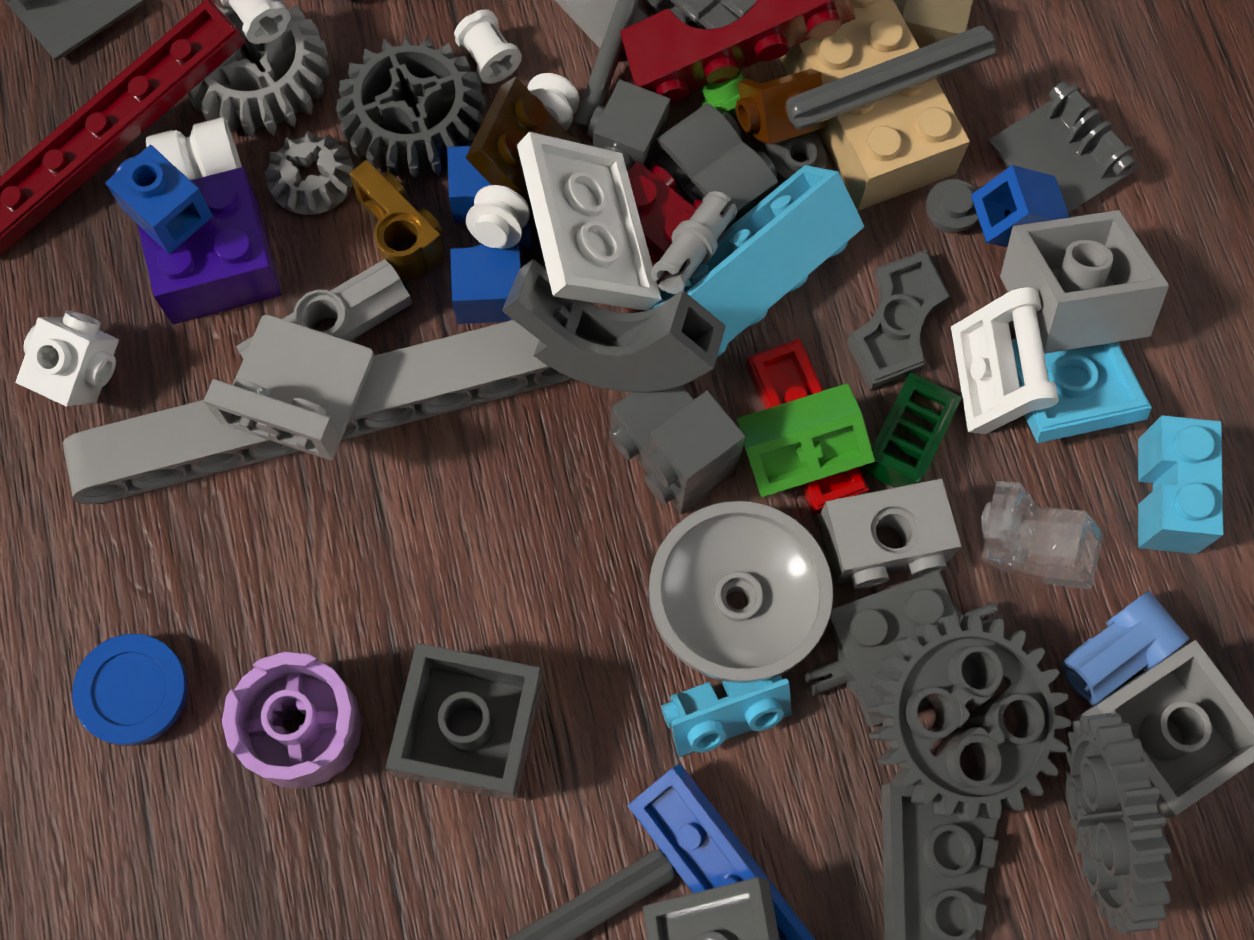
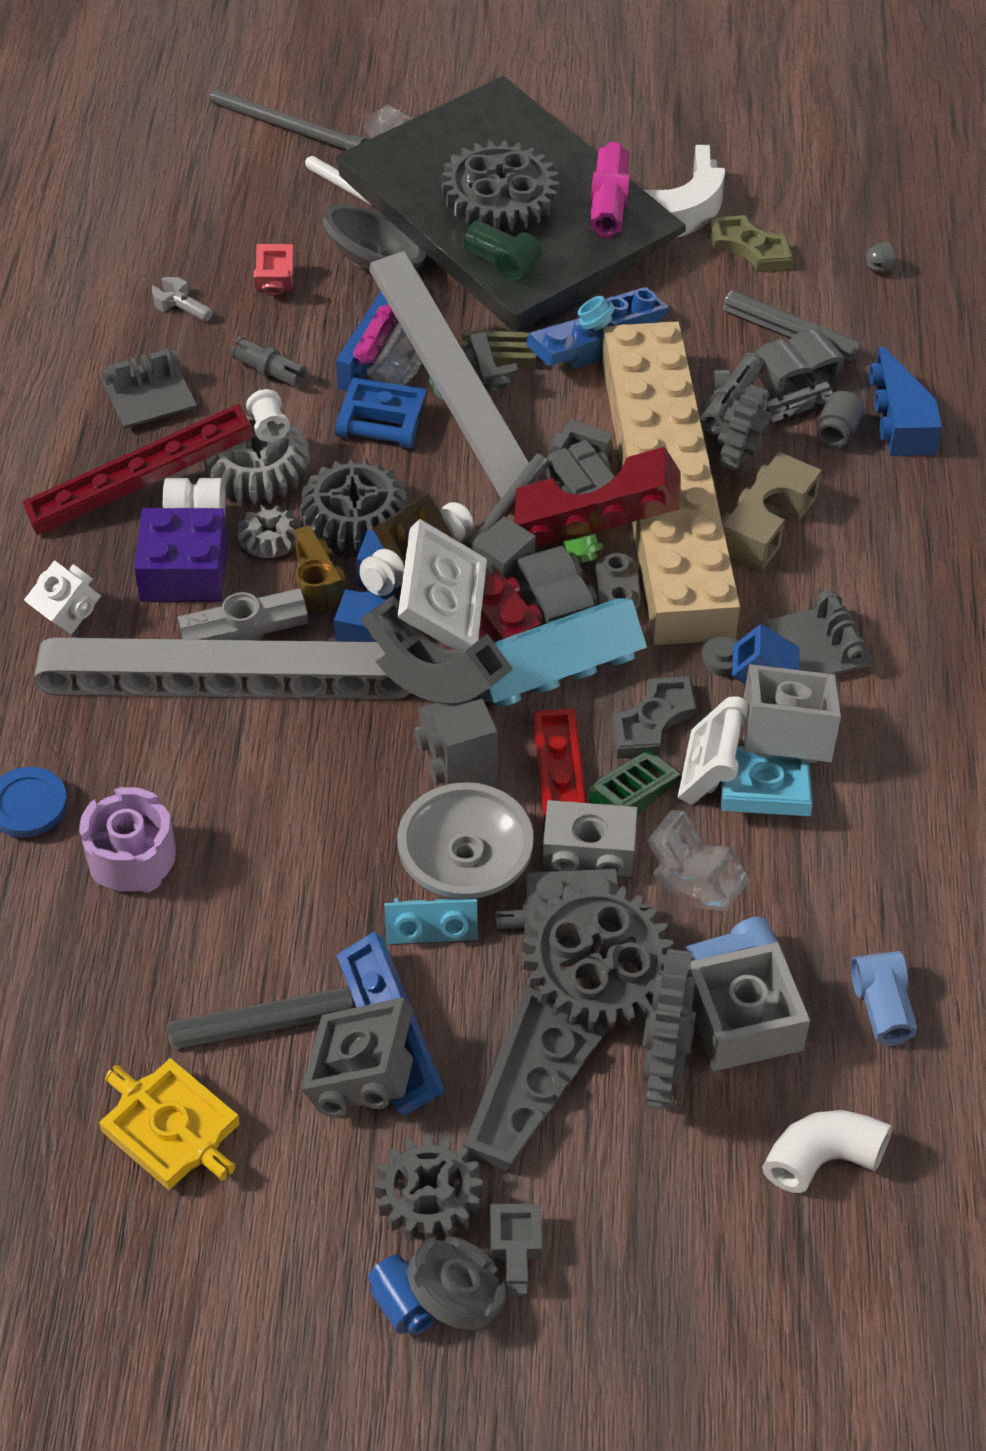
camera: 20 degrees right, 20 degrees down
(159, 198) = (160, 507): blue brick -> none
(293, 387) = (204, 640): light grey bracket -> none
(465, 722) = (243, 870): dark grey brick -> none
(487, 46) = (420, 475): white bush -> none
(693, 242) = (515, 618): light grey pin -> none
(763, 106) = (614, 557): reddish brown bracket -> none
(806, 440) = (549, 765): bright green hinge -> none
(890, 77) = (692, 550): dark grey axle -> none
(1187, 494) = (817, 861): medium azure brick -> none

